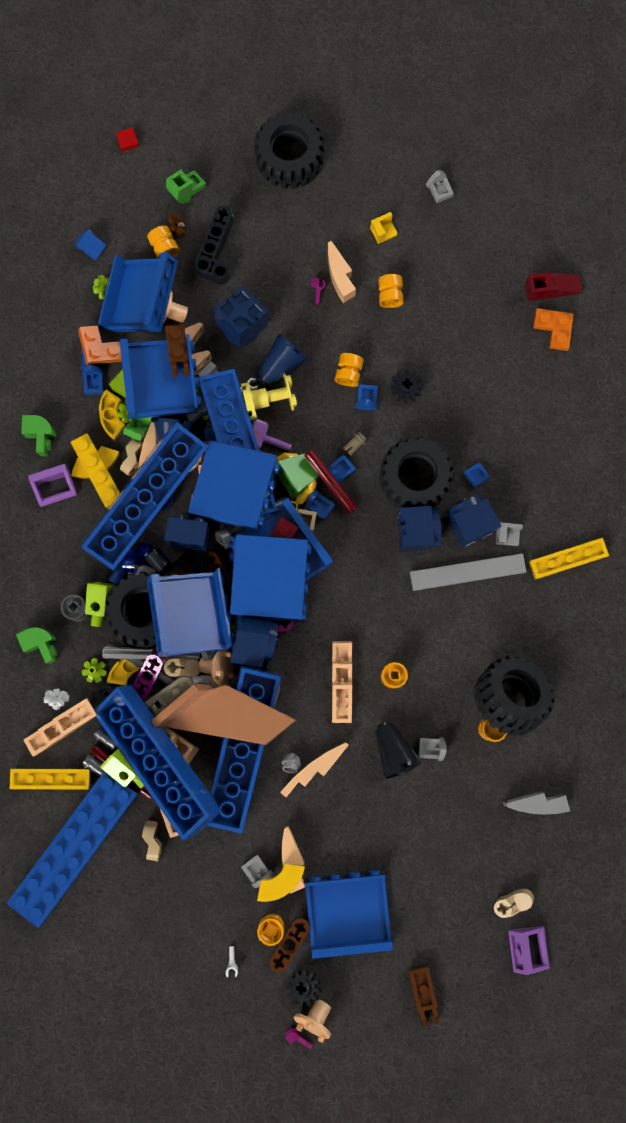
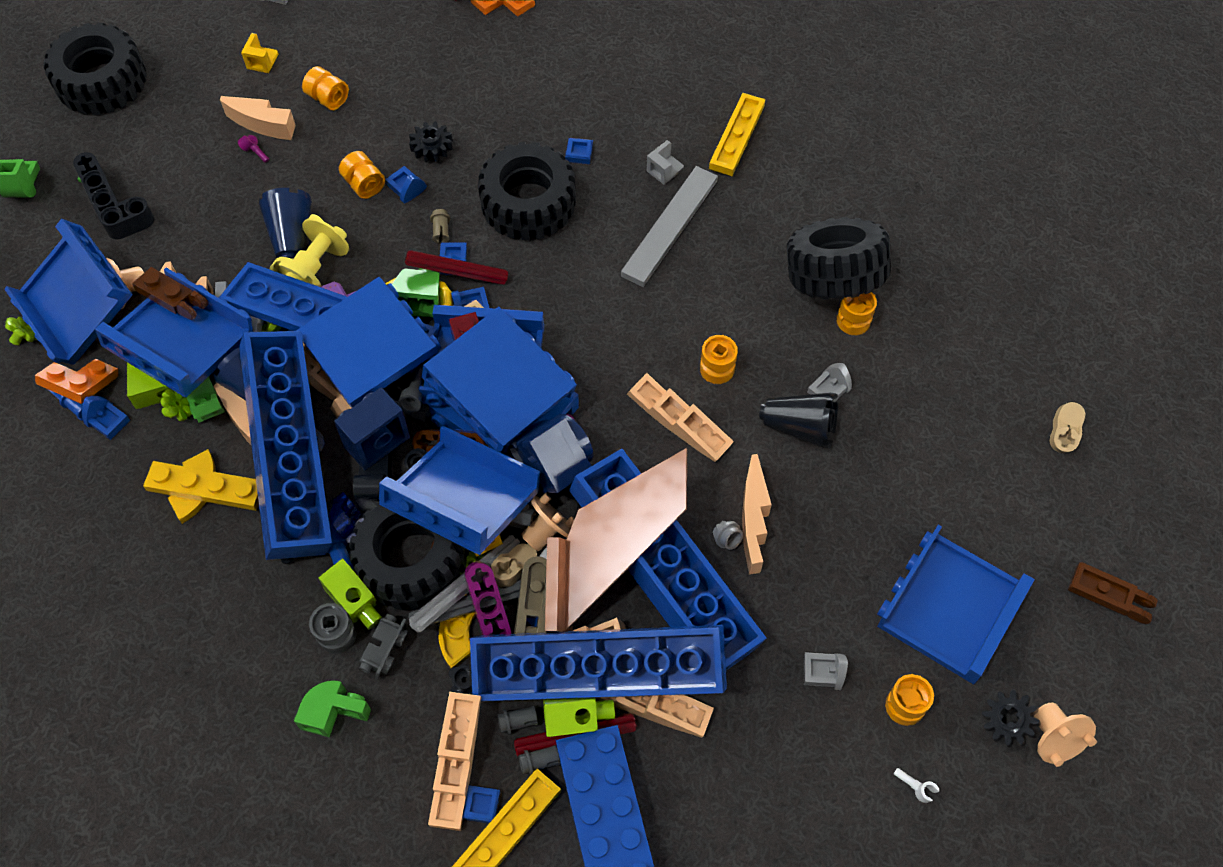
camera: 50 degrees left, 20 degrees down
(39, 428) = (93, 509): bright green brick -> none
(48, 476) = (156, 539): medium lavender tile -> none
(53, 755) = (481, 804): none -> blue tile
(56, 698) = (416, 741): white plant -> none
(96, 639) = (379, 658): none -> dark grey hinge
(97, 673) = (424, 673): lime plant -> none
(108, 411) = (159, 430): yellow tile -> none
(131, 463) = (232, 441): tan piece -> none
(150, 838) = (697, 762): tan piece -> none
(163, 241) = (40, 237): light orange wheel -> none
(176, 224) = (43, 217): reddish brown plant -> none
(241, 317) = (204, 220): dark blue piece -> none
(276, 954) = (960, 716): reddish brown beam -> none
(281, 884) = (863, 639): yellow tile -> none
(291, 854) = (841, 617): light nougat slope -> none
(293, 1035) = (1062, 779): magenta hand -> none
(419, 528) = (584, 225): dark blue piece -> none
(472, 520) = (623, 175): dark blue piece -> none
(521, 950) = (1130, 457): medium lavender tile -> none
(539, 804) = (974, 328): light grey slope -> none

